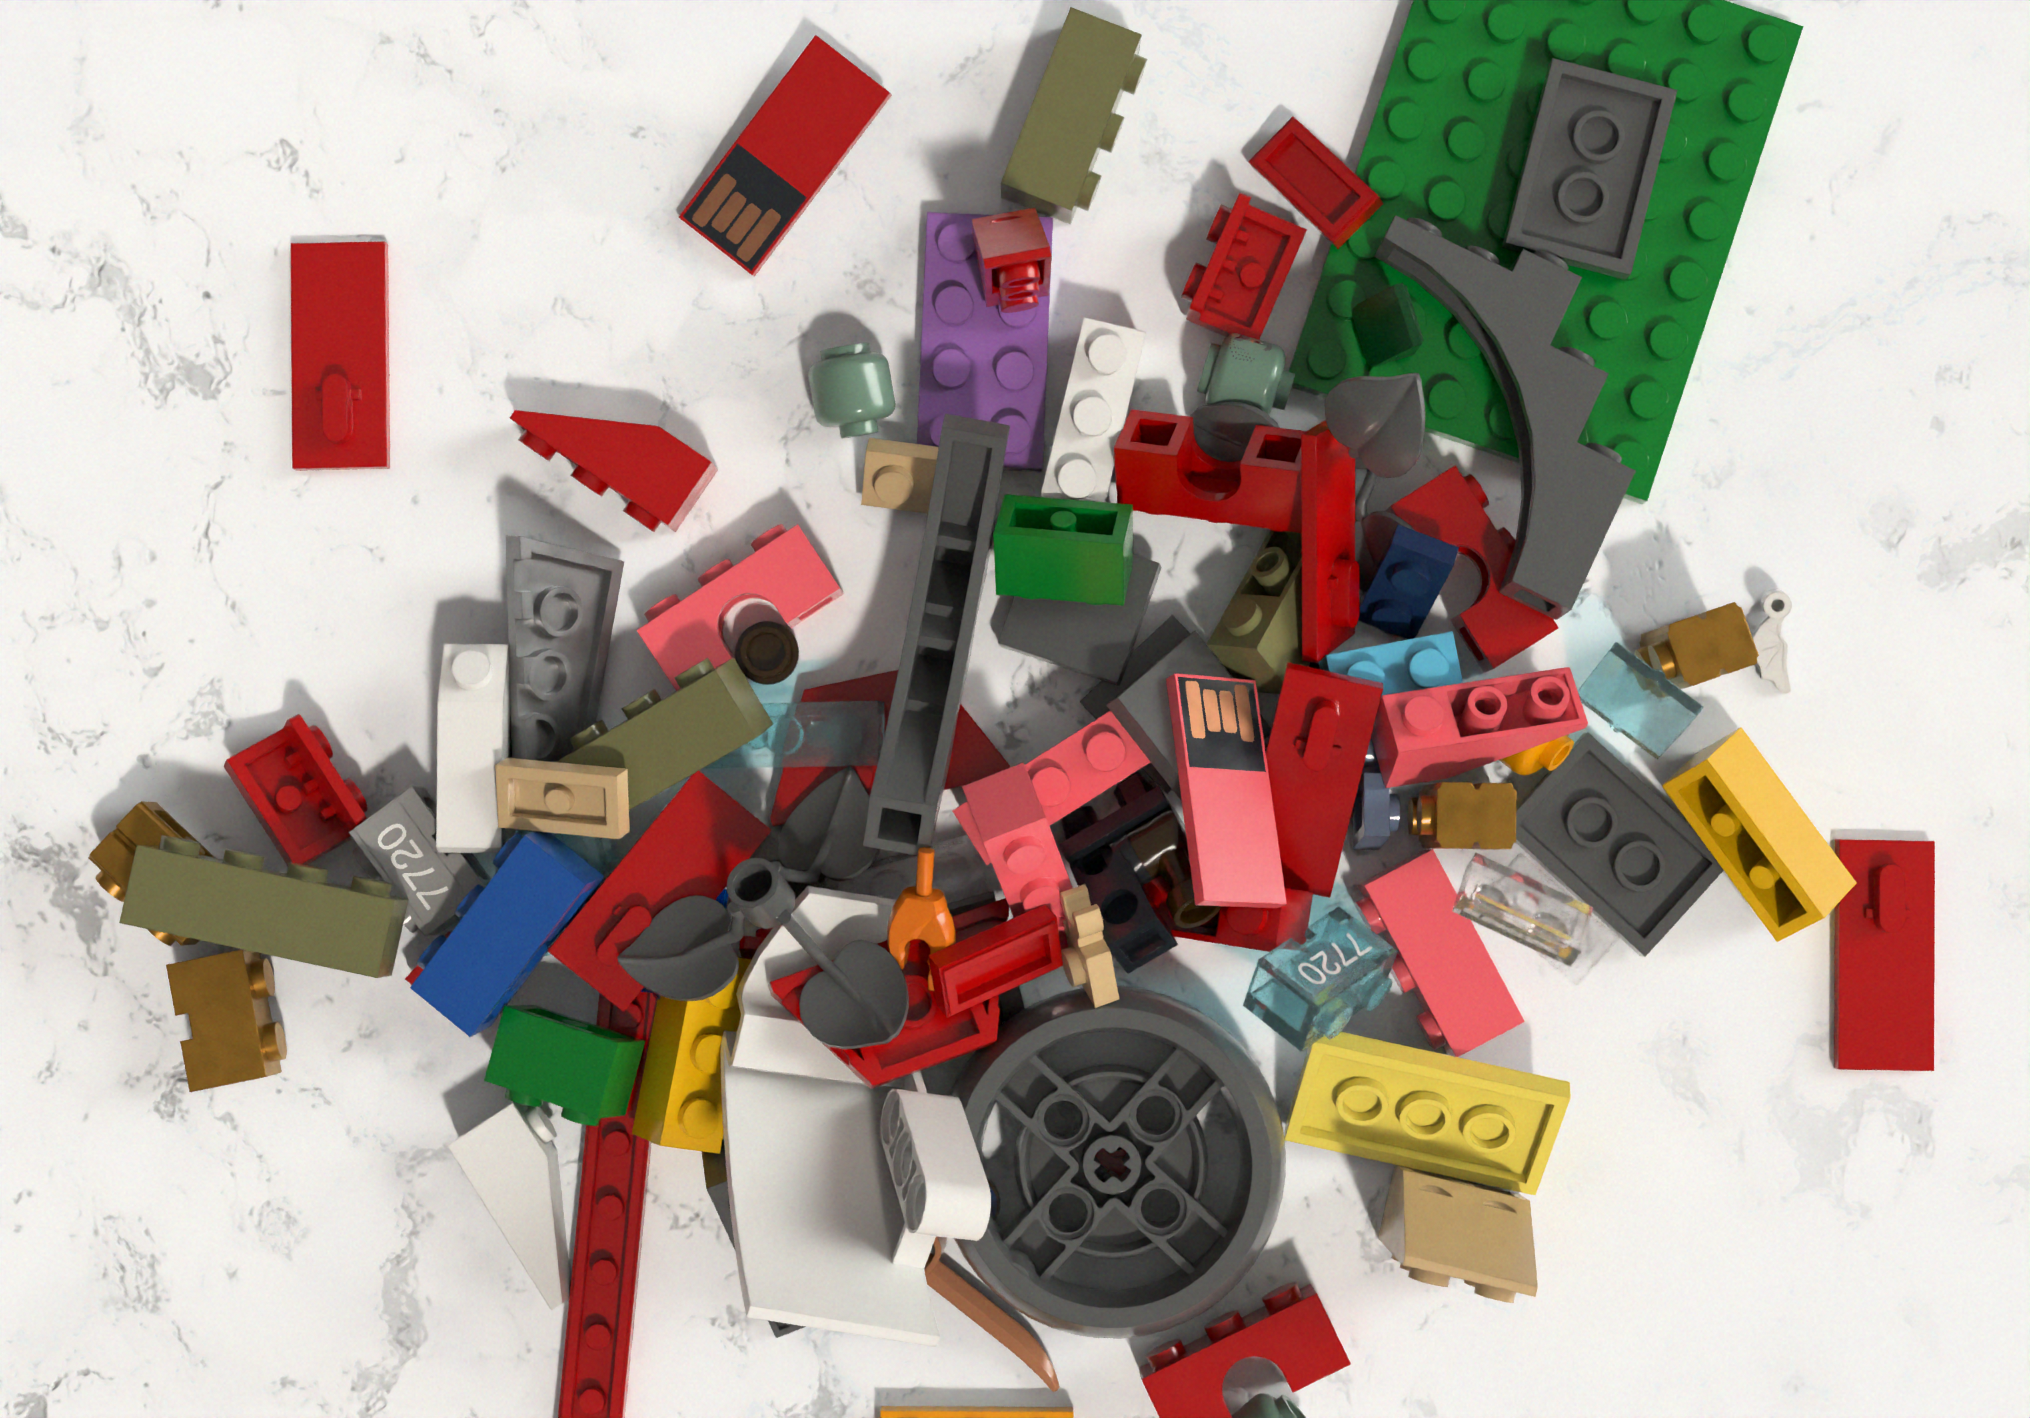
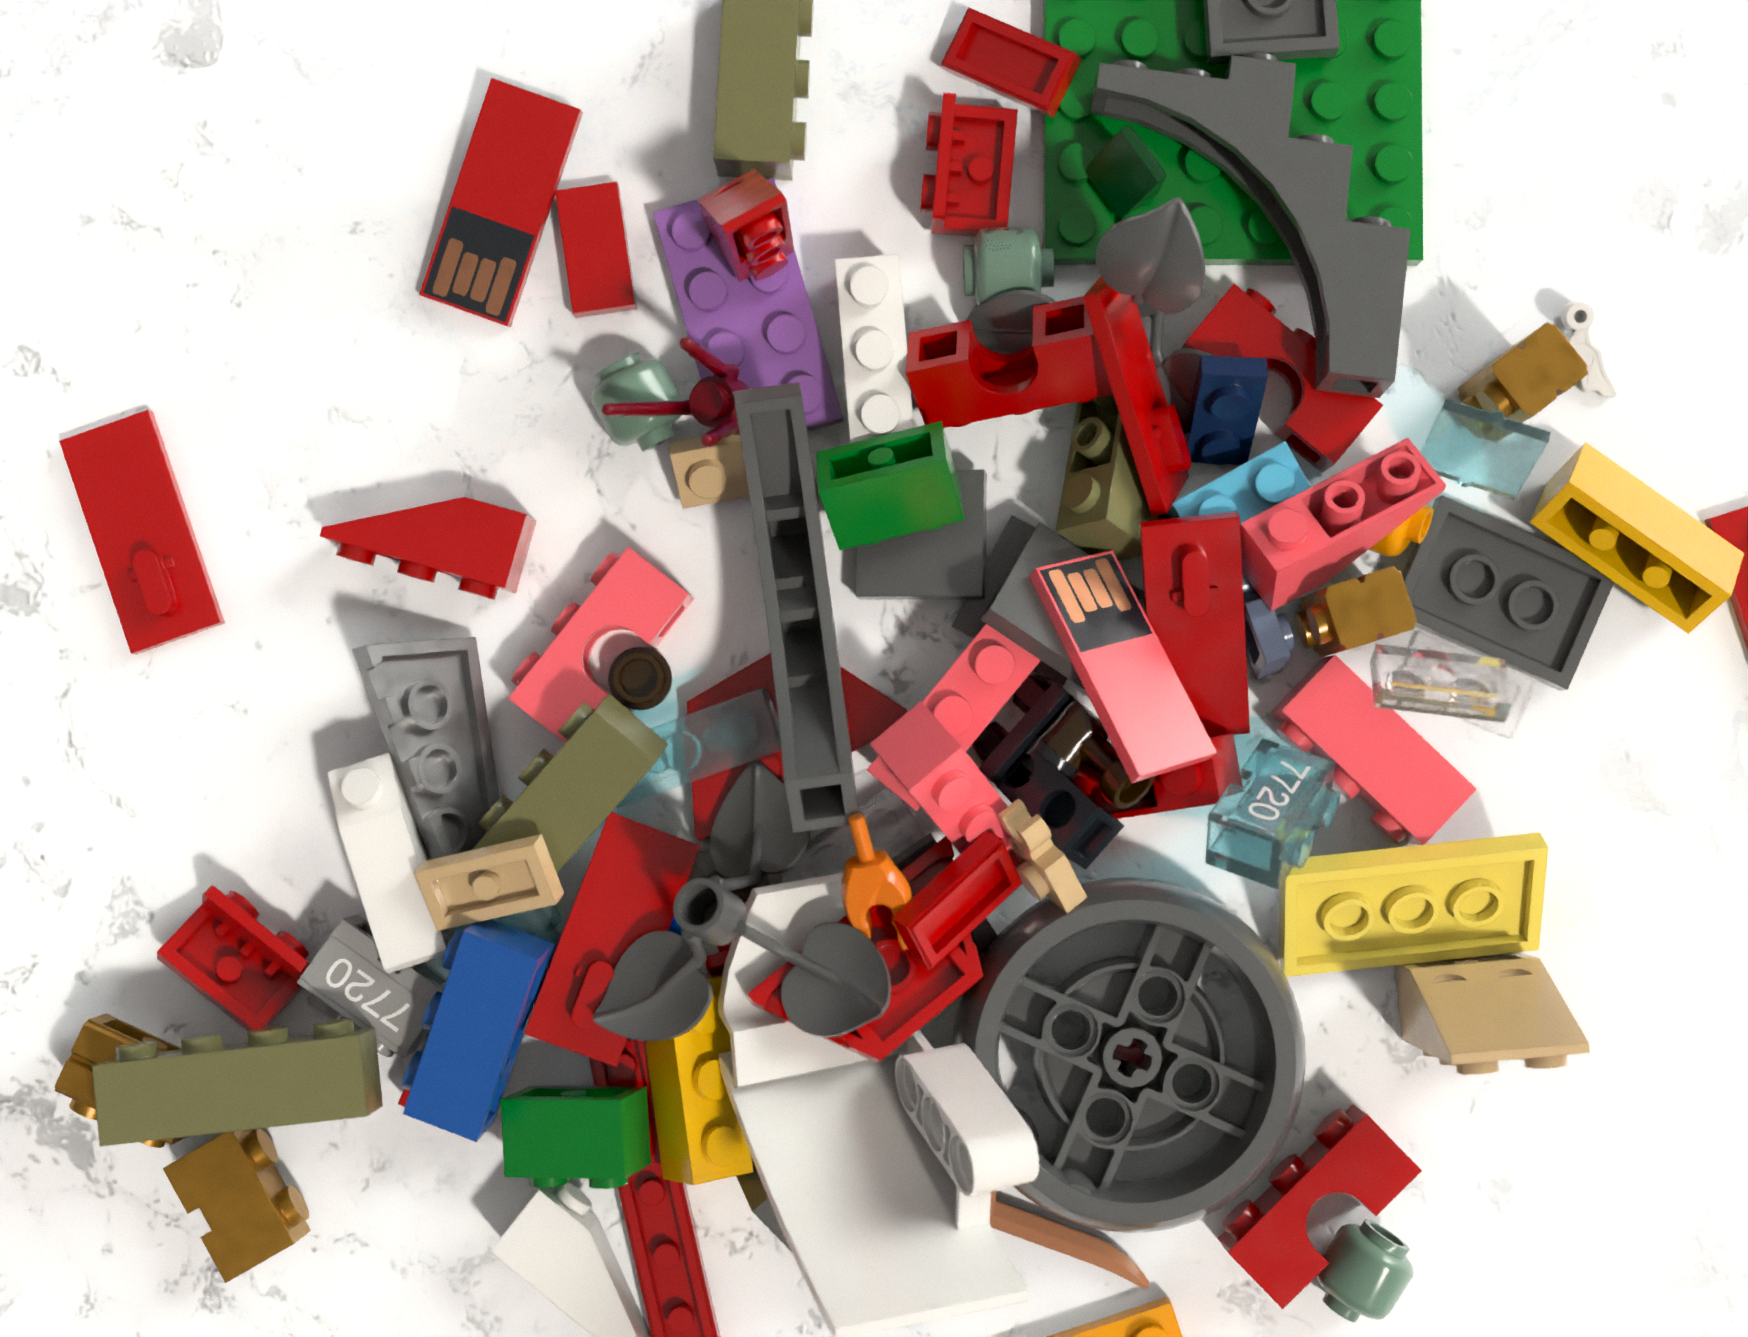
camera: 15 degrees left, 0 degrees up
(861, 229) = (596, 249): none -> red tile
(919, 413) = (709, 401): none -> dark red plant

